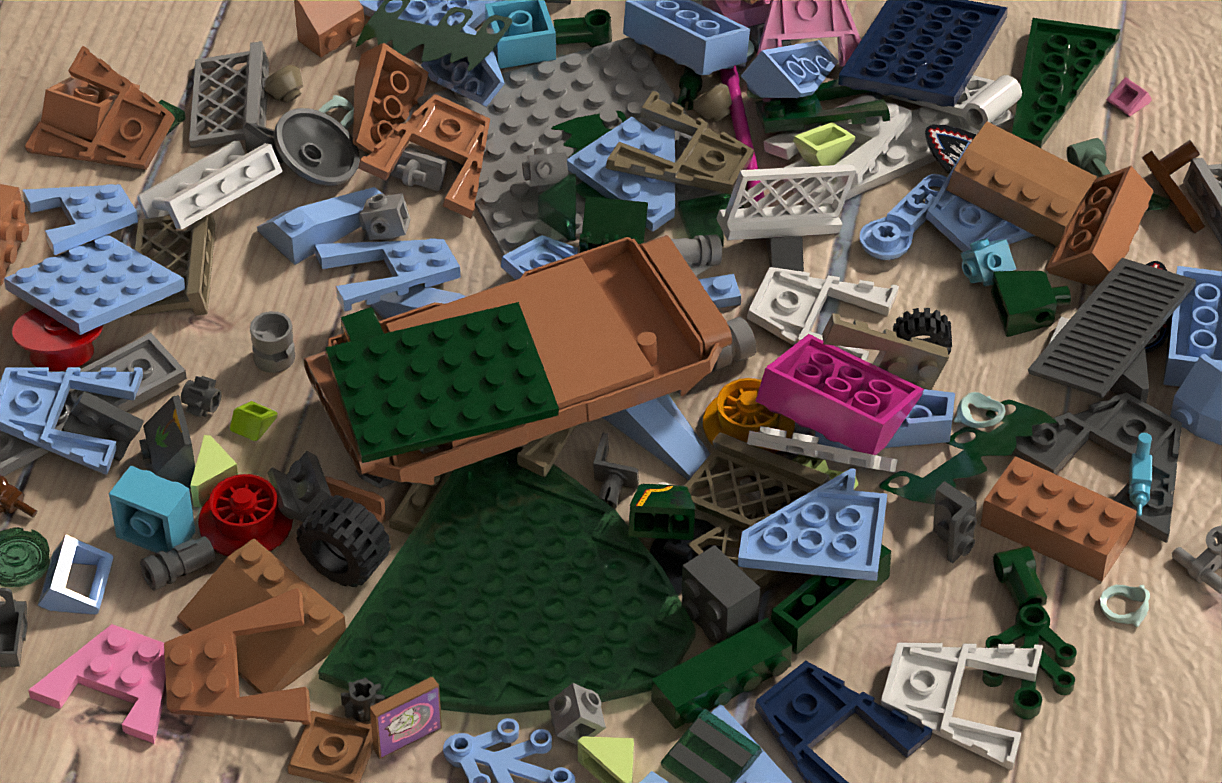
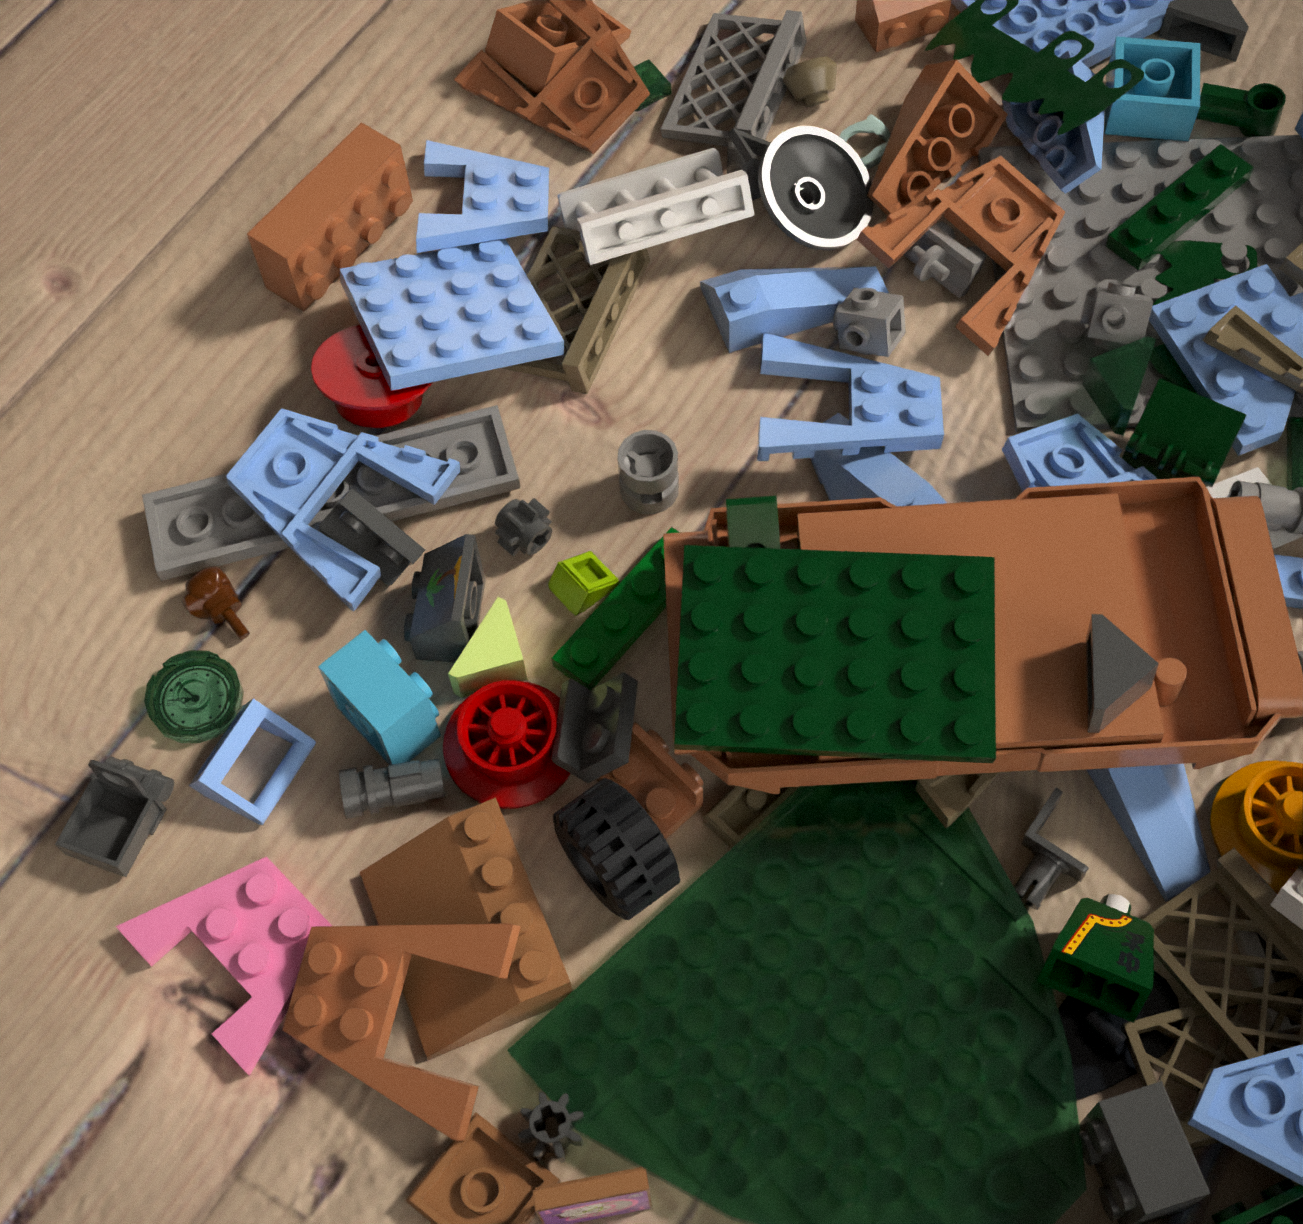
camera: 25 degrees right, 15 degrees up
(289, 428) = (616, 621): none -> green plate
(563, 98) = (1179, 207): none -> dark green plate
(613, 342) = (1115, 672): none -> dark grey slope

